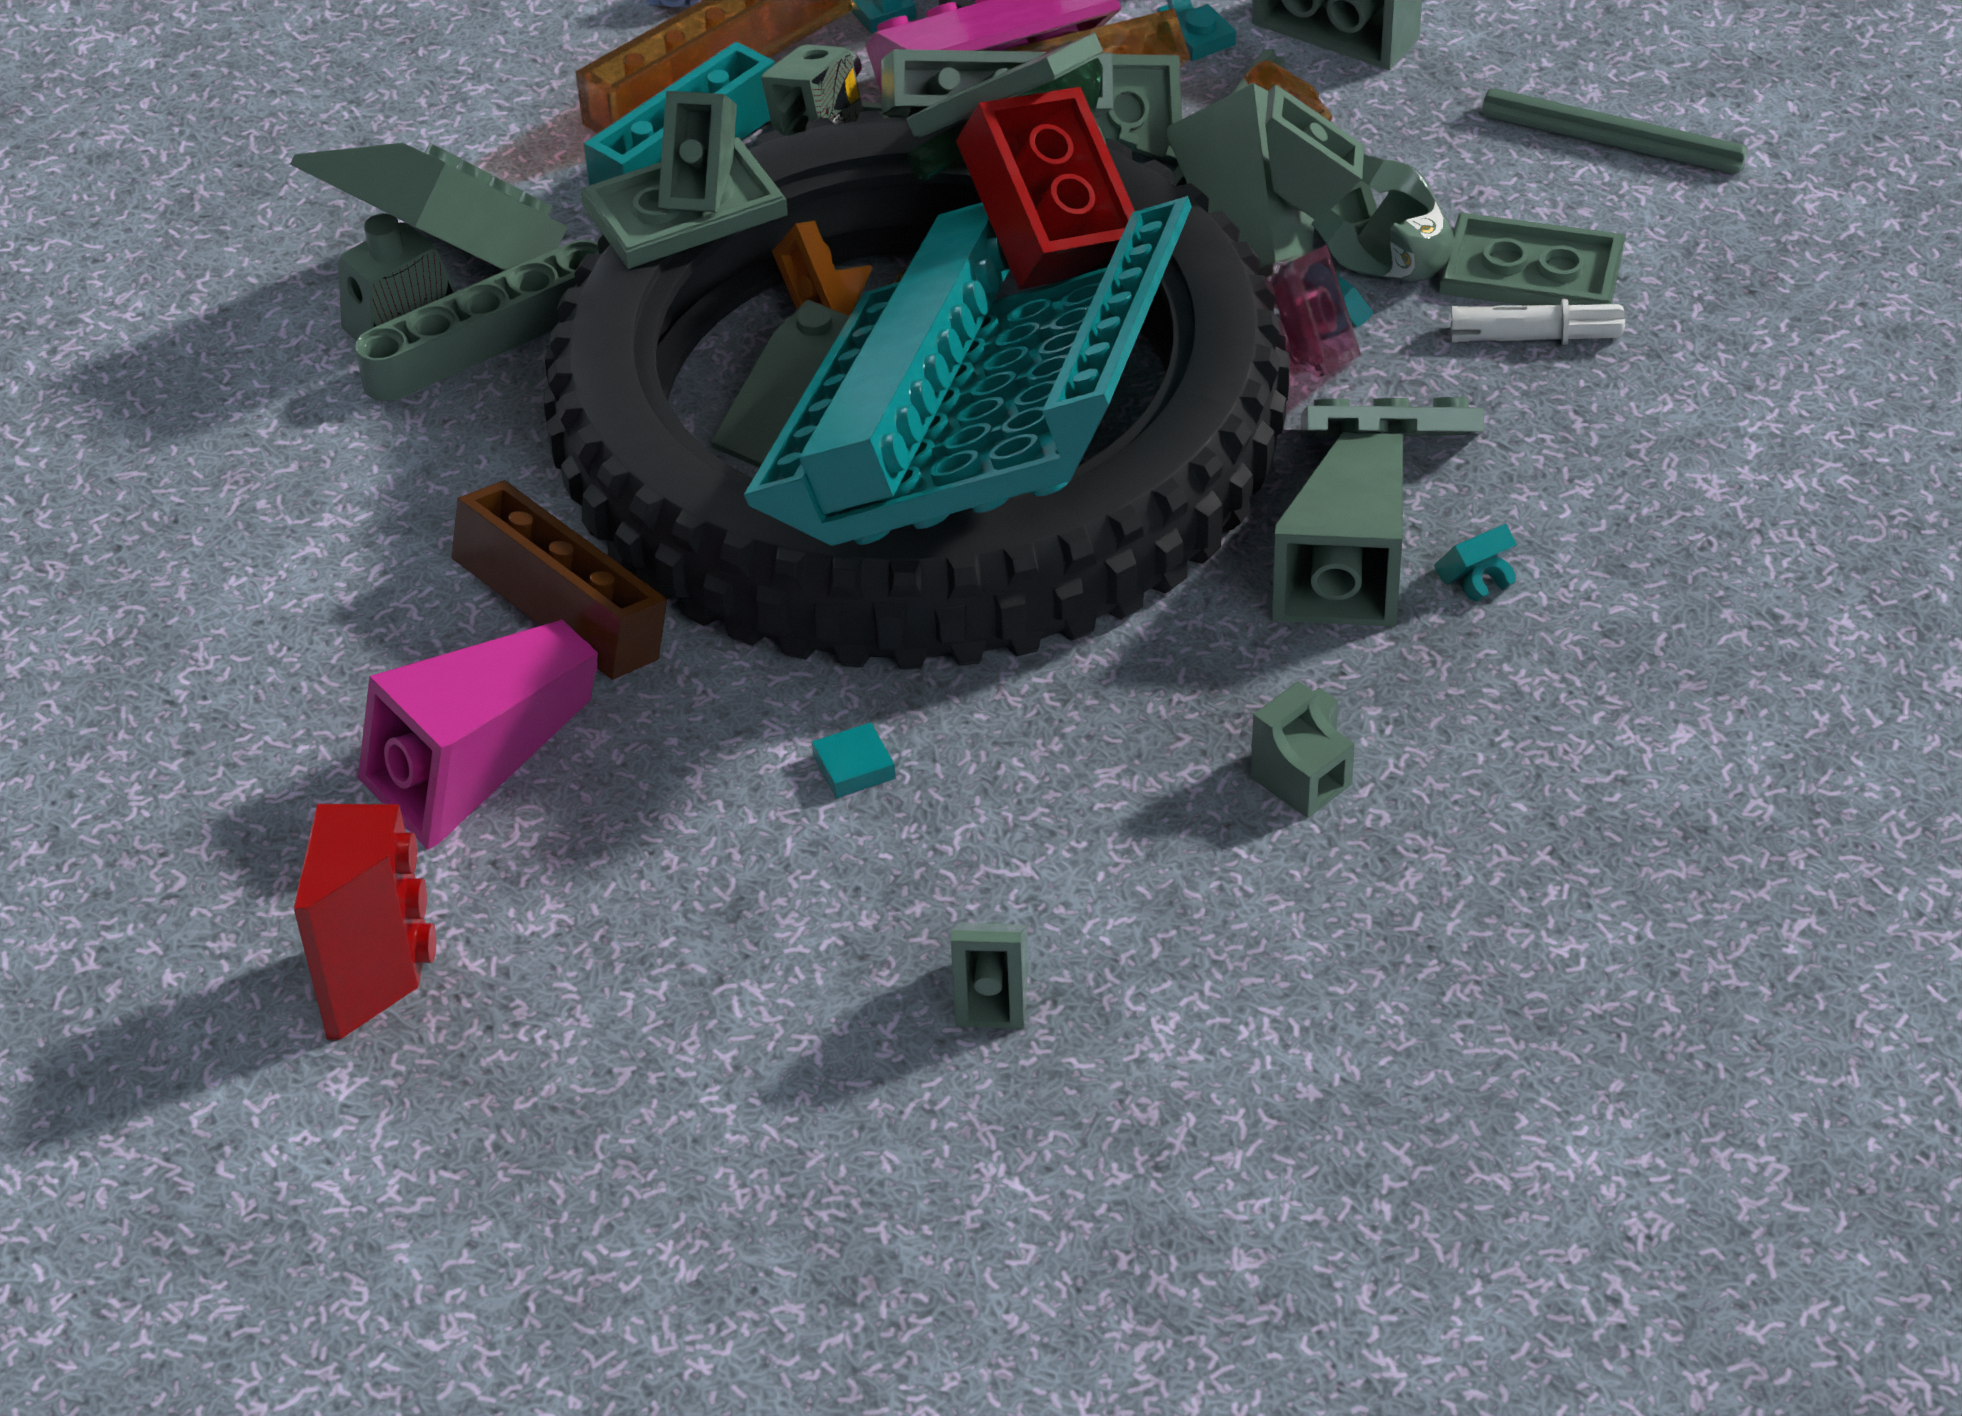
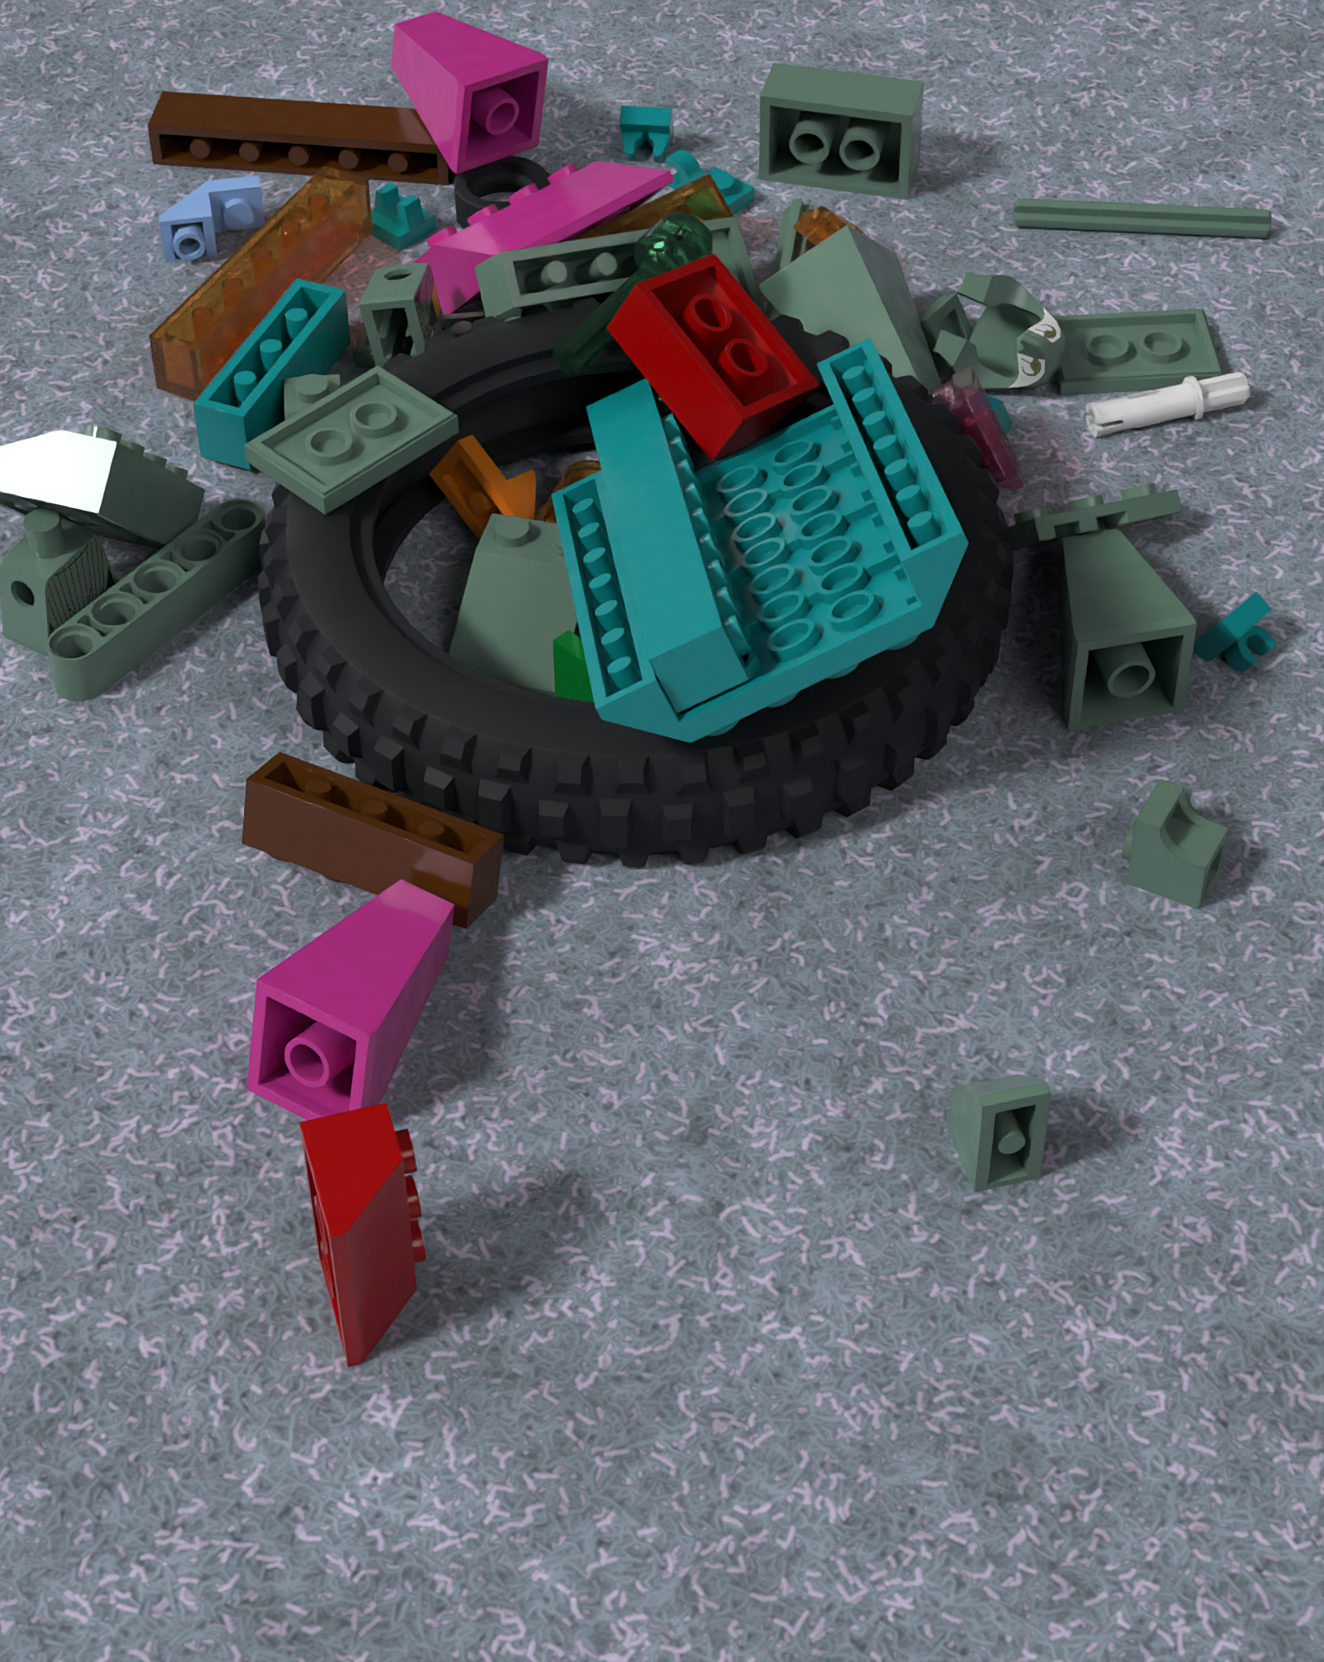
camera: 20 degrees left, 0 degrees up
(696, 150) = (358, 384): sand green slope -> none
(853, 760) = (745, 953): teal tile -> none
(1006, 85) = (634, 265): sand green tile -> none
(1309, 156) = (928, 285): sand green slope -> none

